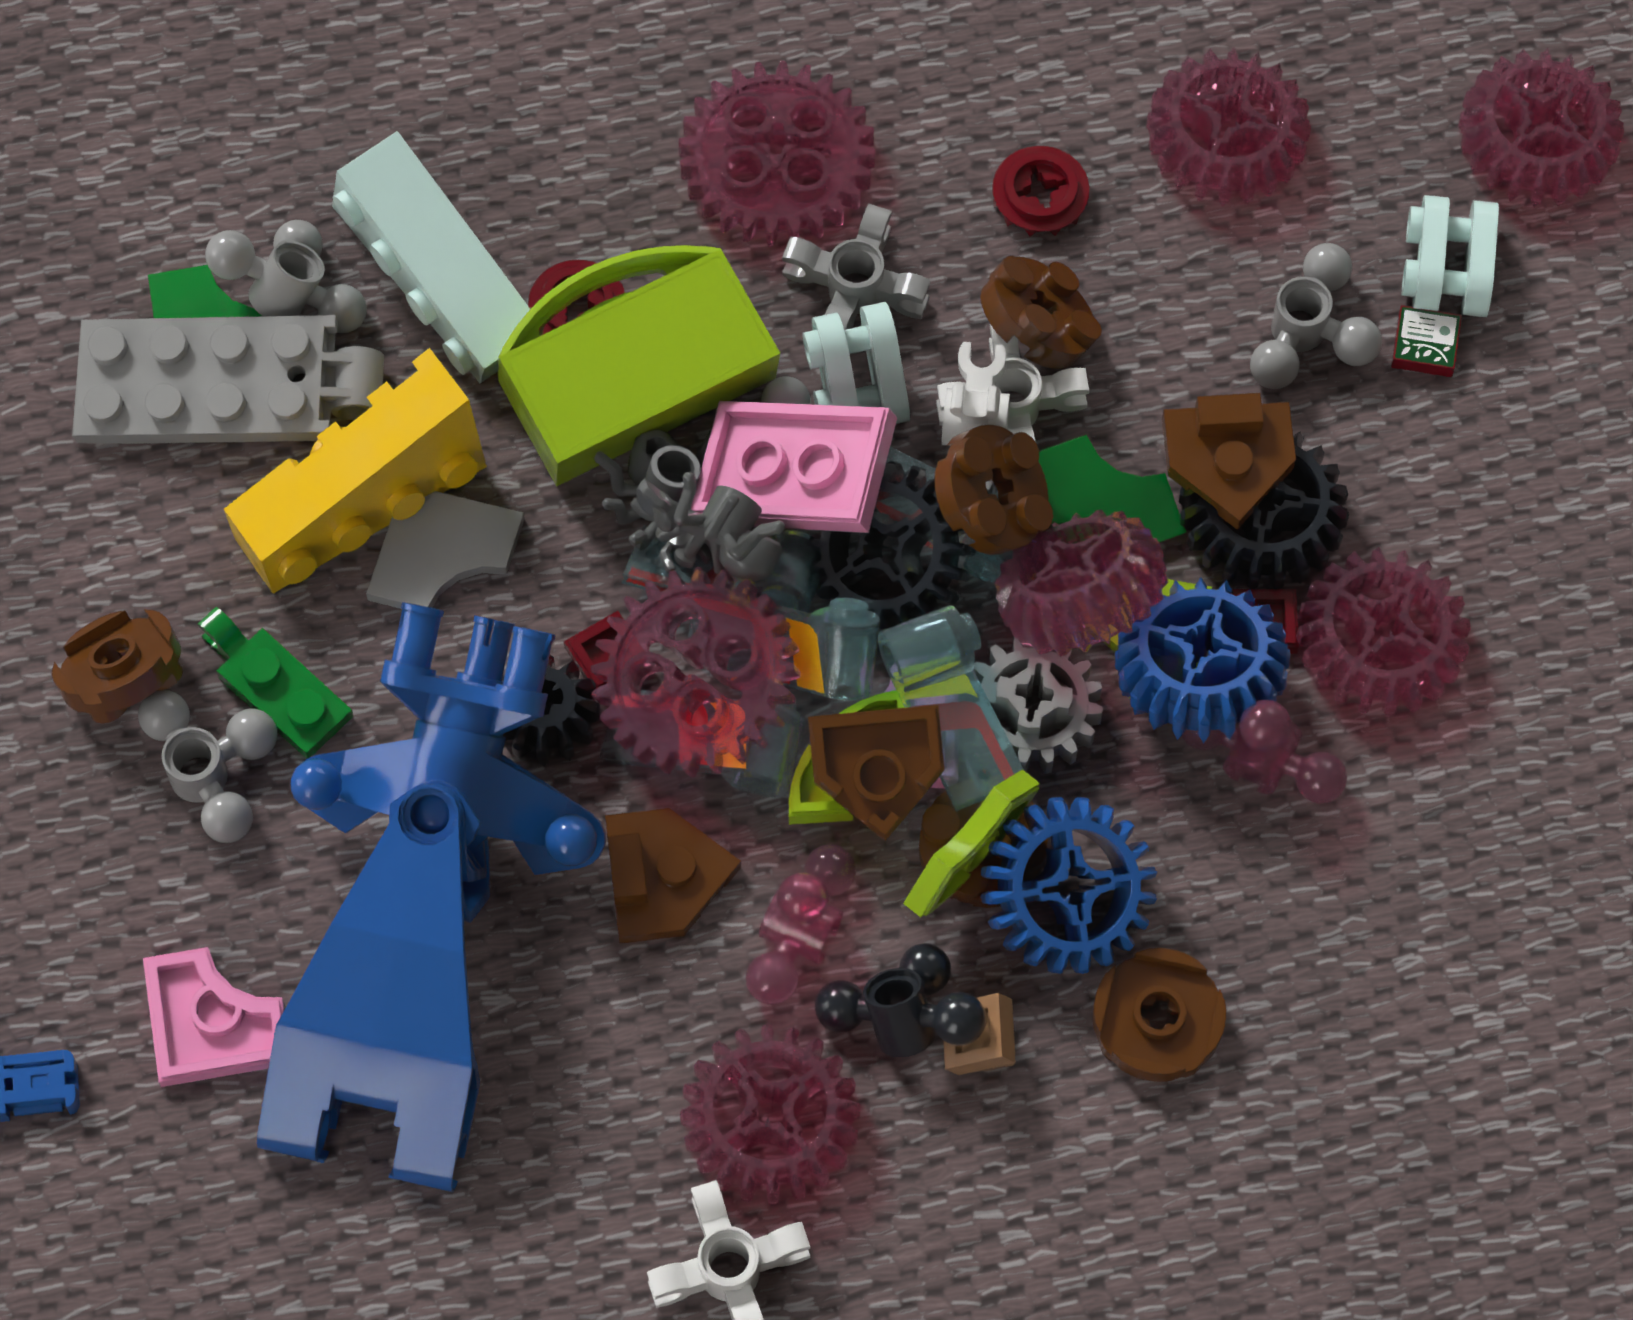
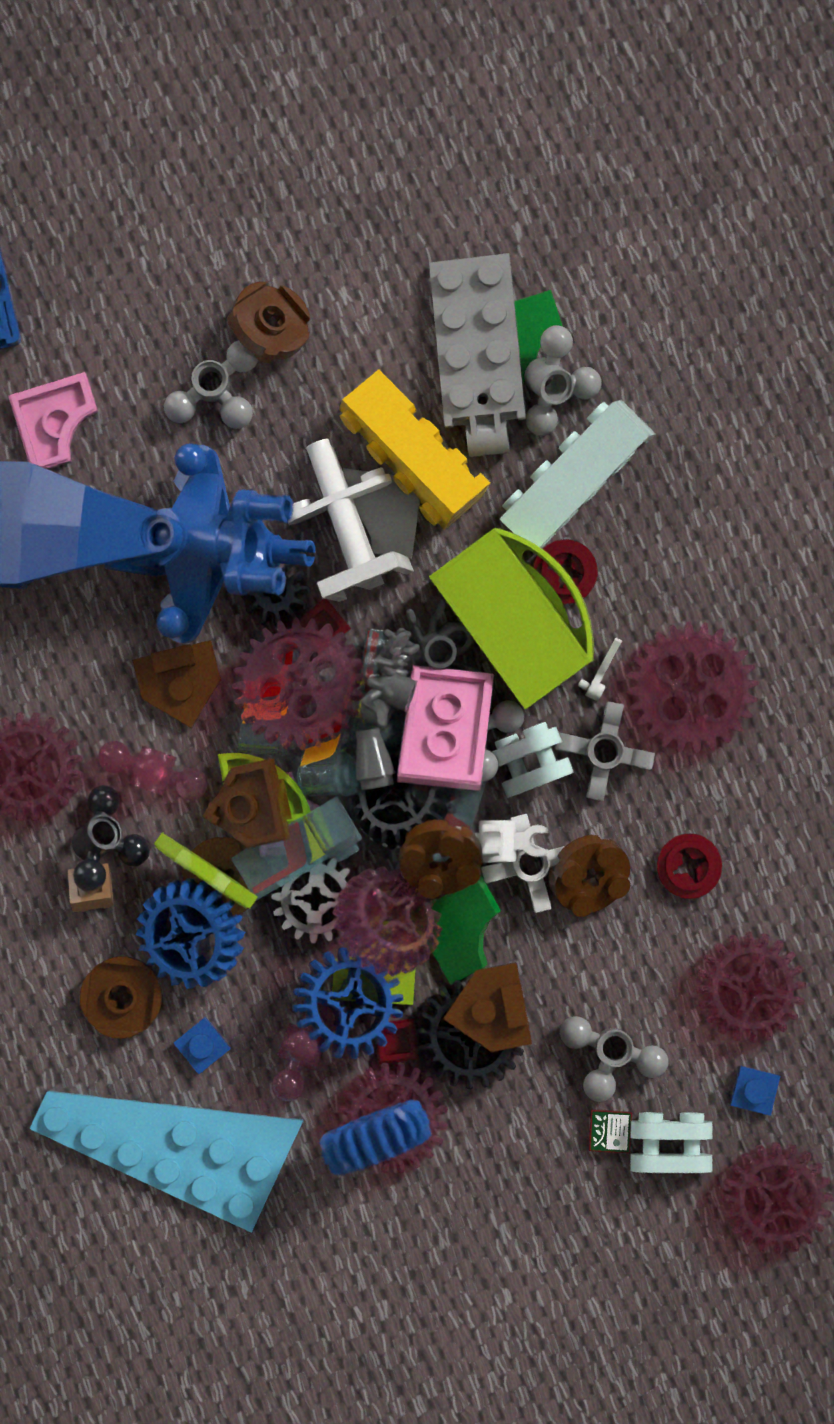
camera: 85 degrees right, 20 degrees up
(276, 683) = (274, 422): green plate -> none
(499, 572) = (363, 567): none -> white piece
(759, 287) = (595, 689): none -> white piece
(830, 569) = (372, 760): none -> dark grey cone
(1247, 904) = (202, 1045): none -> blue plate
(1380, 144) = (755, 1090): none -> blue plate
(1416, 619) = (375, 1137): none -> blue gear
(1417, 937) = (195, 1154): none -> medium azure wing

